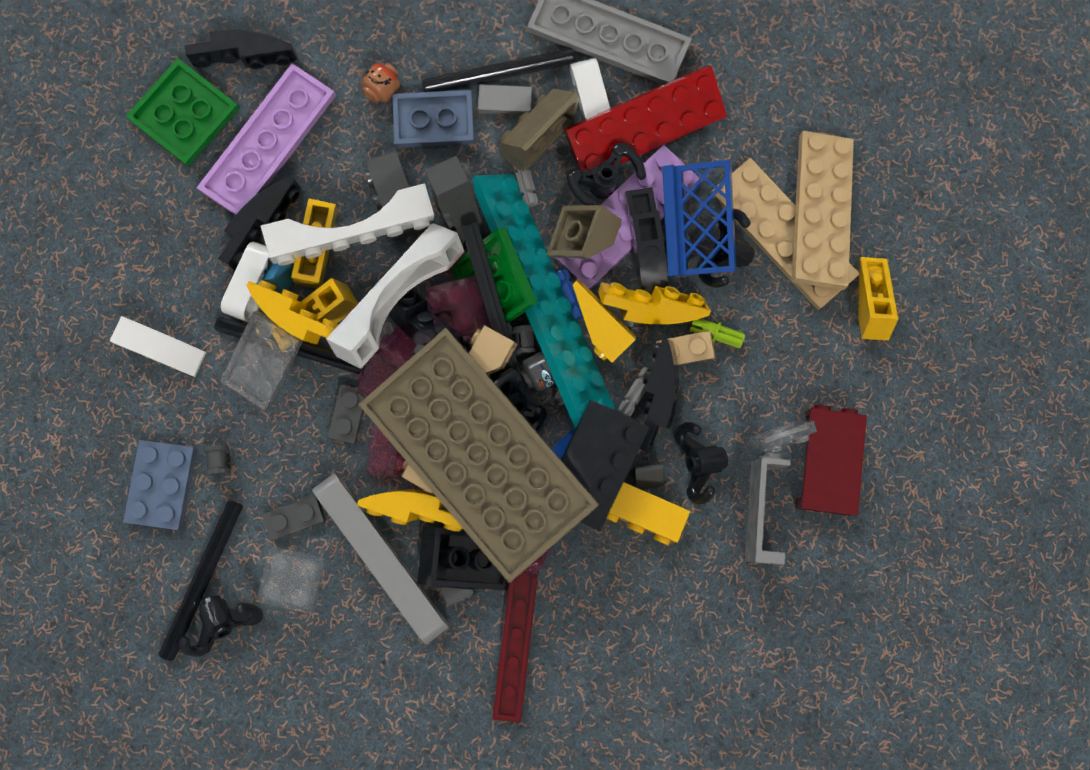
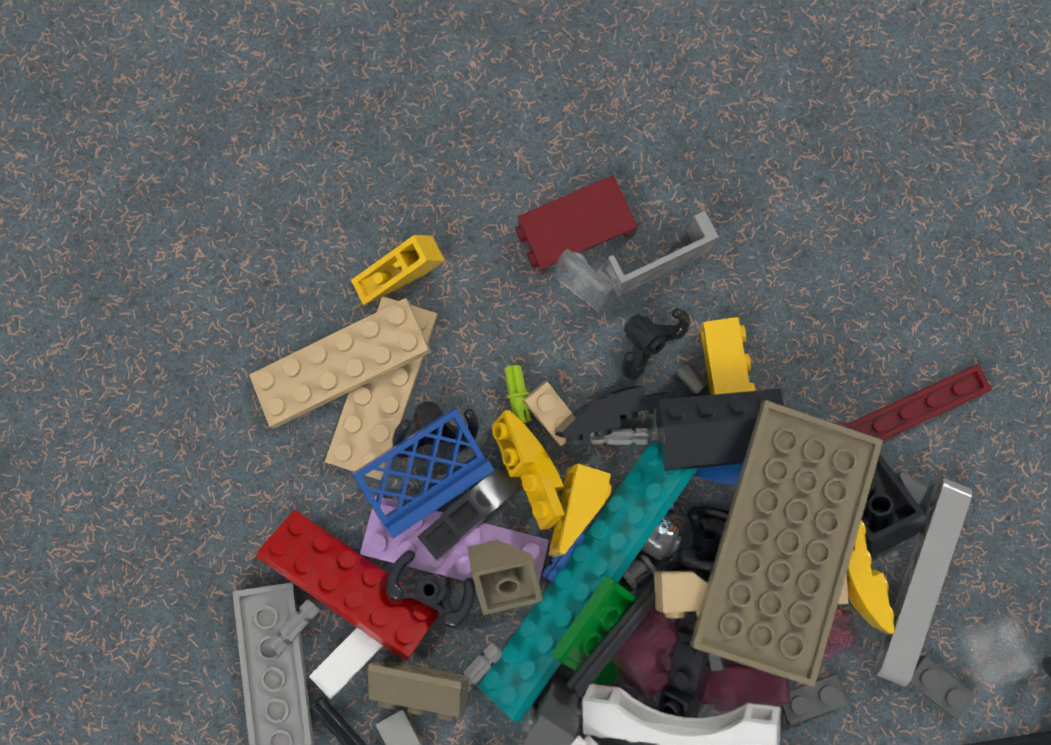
camera: 115 degrees left, 0 degrees up
(639, 66) = (294, 626): none -> light grey axle

